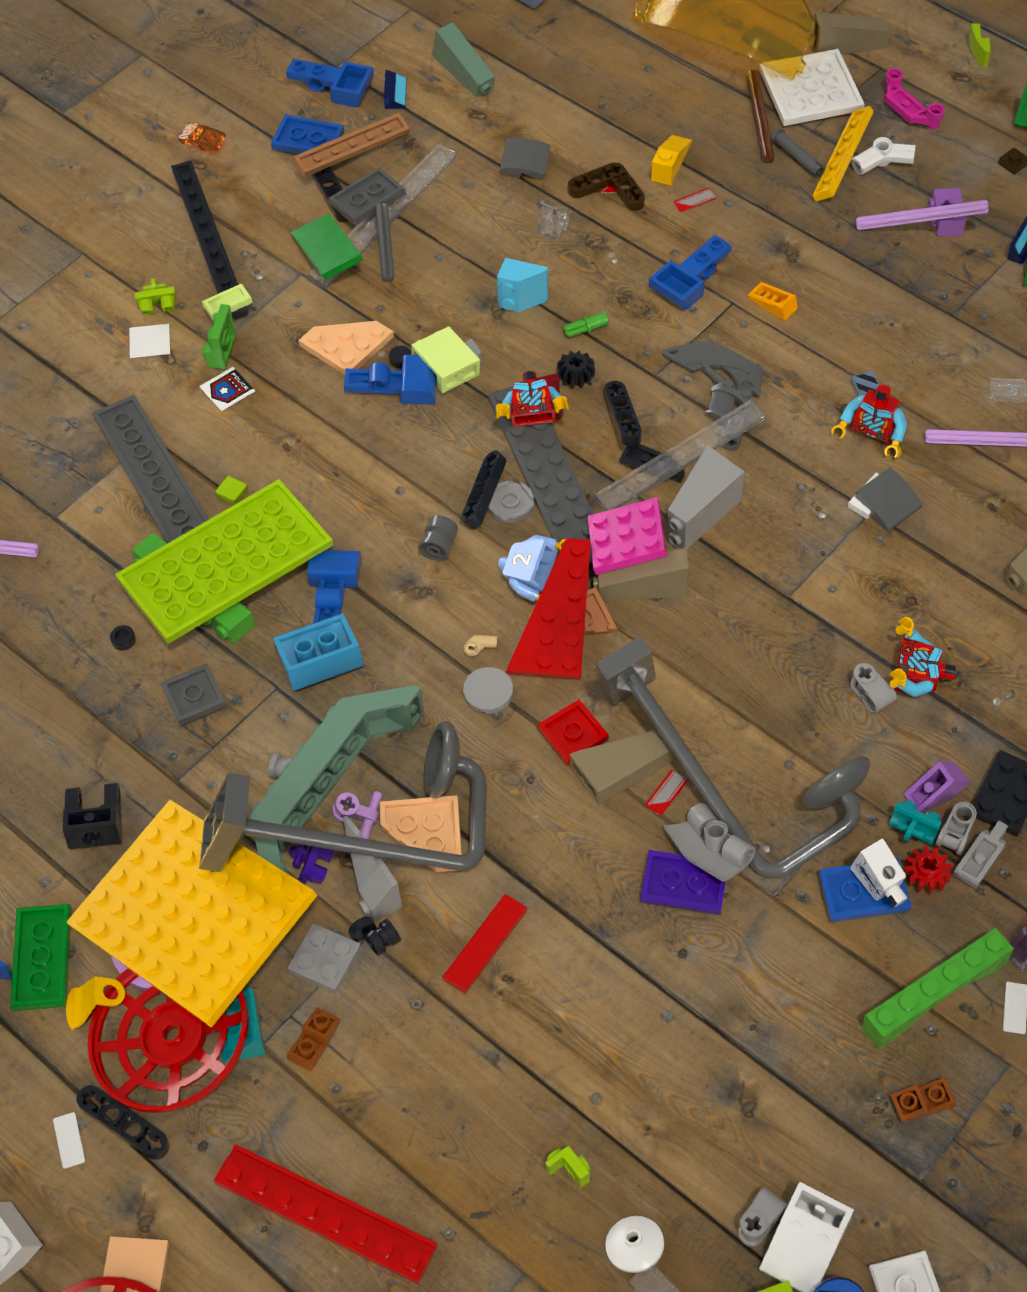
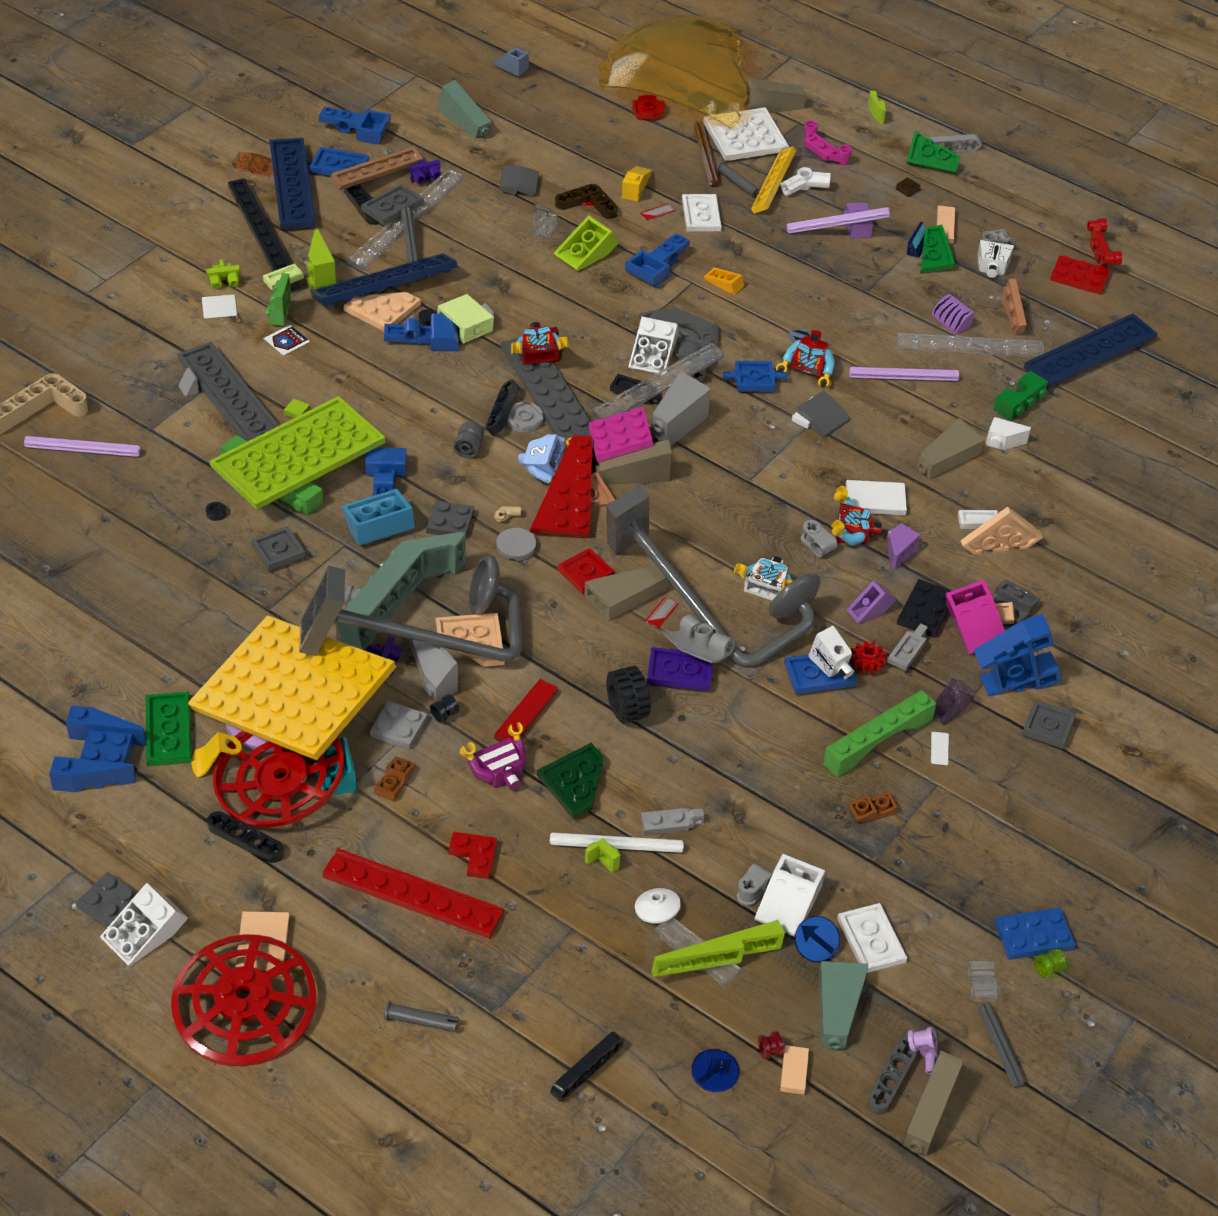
camera: 10 degrees left, 10 degrees down
(69, 1140) = (201, 851): white sticker -> none
(92, 825) = (203, 635): black brick -> none
(103, 454) = (189, 383): none -> light grey slope
(248, 167) = (292, 184): none -> dark blue plate
(271, 286) = (321, 263): none -> lime slope
(327, 246) = (362, 238): green tile -> none
(349, 303) = (385, 278): none -> dark blue plate
(360, 927) = (425, 702): black tile -> none
(366, 814) = (416, 621): lavender piece -> none
(394, 90) = (409, 132): clear blue slope -> none
(408, 653) = (449, 518): none -> dark grey plate
(410, 146) = (425, 170): none -> dark purple hips
(414, 1151) = (477, 848): none -> red plate
(446, 1021) = (500, 762): none -> magenta torso
(521, 285) = (524, 266): medium azure slope -> none
(540, 1048) = (574, 779): none -> dark green plate
(576, 369) = (571, 325): black gear -> none
(586, 324) = (576, 295): bright green axle -> none
(588, 1145) = (628, 843): none -> white axle
(602, 252) = (586, 244): none -> lime slope
(614, 927) = (628, 694): none -> black tyre
(620, 413) = (610, 355): black beam -> none
(658, 1112) = (671, 820): none -> light grey hinge
(678, 400) = (653, 345): none -> white slope
(686, 58) = (648, 107): none -> red plate
(749, 201) = (701, 212): none -> white tile
(803, 442) = (755, 376): none -> blue plate
(803, 748) = (765, 577): none -> torso
(915, 823) = (856, 627): teal hips -> none
(952, 623) = (878, 496): none -> white tile
(956, 831) = (889, 629): light grey piece -> none
(979, 697) = (901, 544): none -> medium lavender slope

